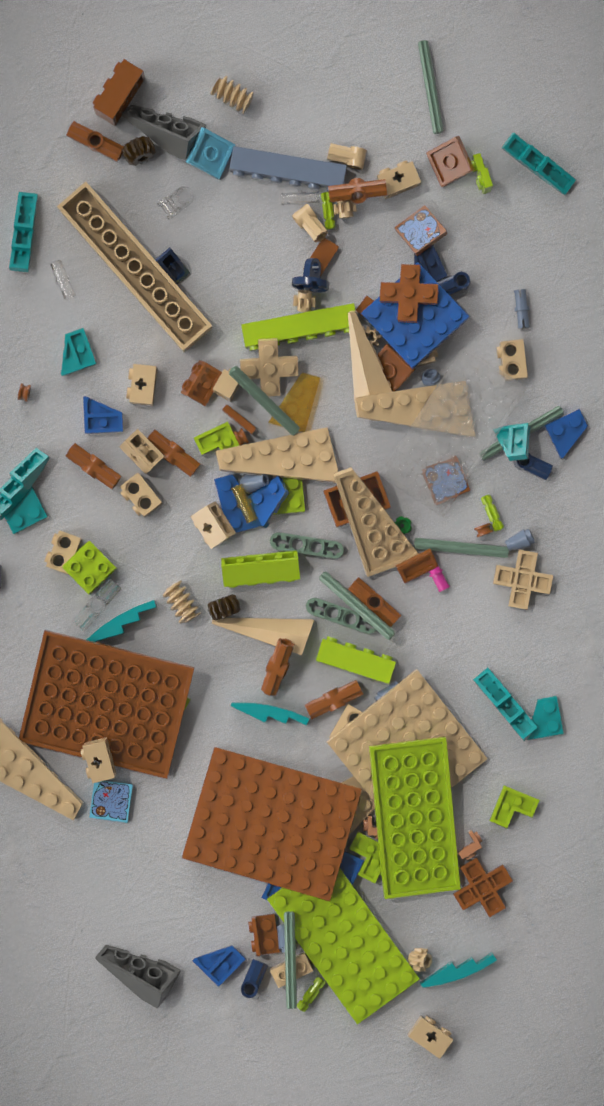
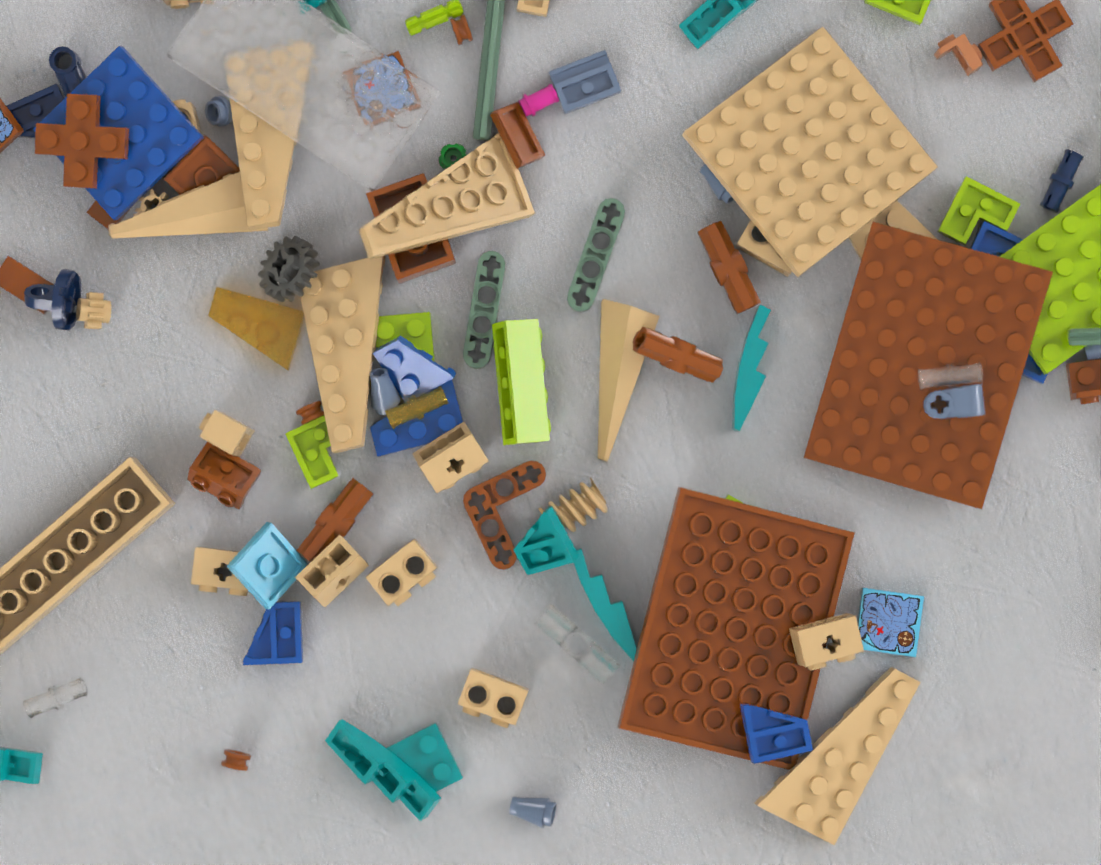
camera: 80 degrees left, 0 degrees up
(41, 727) = (774, 734): none -> blue wing
(76, 352) = (173, 675): teal wing -> none
(89, 567) = (517, 656): lime bracket -> none
(93, 466) = (355, 649): dark orange piece -> none
(145, 411) = (267, 565): none -> medium azure tile
(158, 584) = (545, 545): none -> teal wing
(172, 265) = (33, 520): dark blue slope -> none
(186, 551) = (493, 500): none -> dark orange beam
(224, 607) = (582, 440): dark brown gear -> none
(239, 419) = (282, 415): dark orange tile -> none
(247, 843) = (960, 402): none -> sand blue piece
(264, 836) = (950, 375): none -> clear pin
(269, 366) = (199, 367): tan plate -> none
(274, 410) = (250, 373): sand green axle -> none
(298, 326) = (135, 322): lime brick -> none
(330, 422) = (288, 269): none -> dark grey gear
(356, 661) = (668, 231): lime brick -> none
(357, 605) = (580, 229): sand green axle -> none
(367, 826) = (938, 198): nougat bracket -> none
(383, 611) = (562, 217): dark orange piece -> none
(390, 910) = (1061, 180): none -> dark blue pin
(414, 817) = (917, 138): lime plate -> none
(451, 608) = (585, 82): none -> sand blue plate

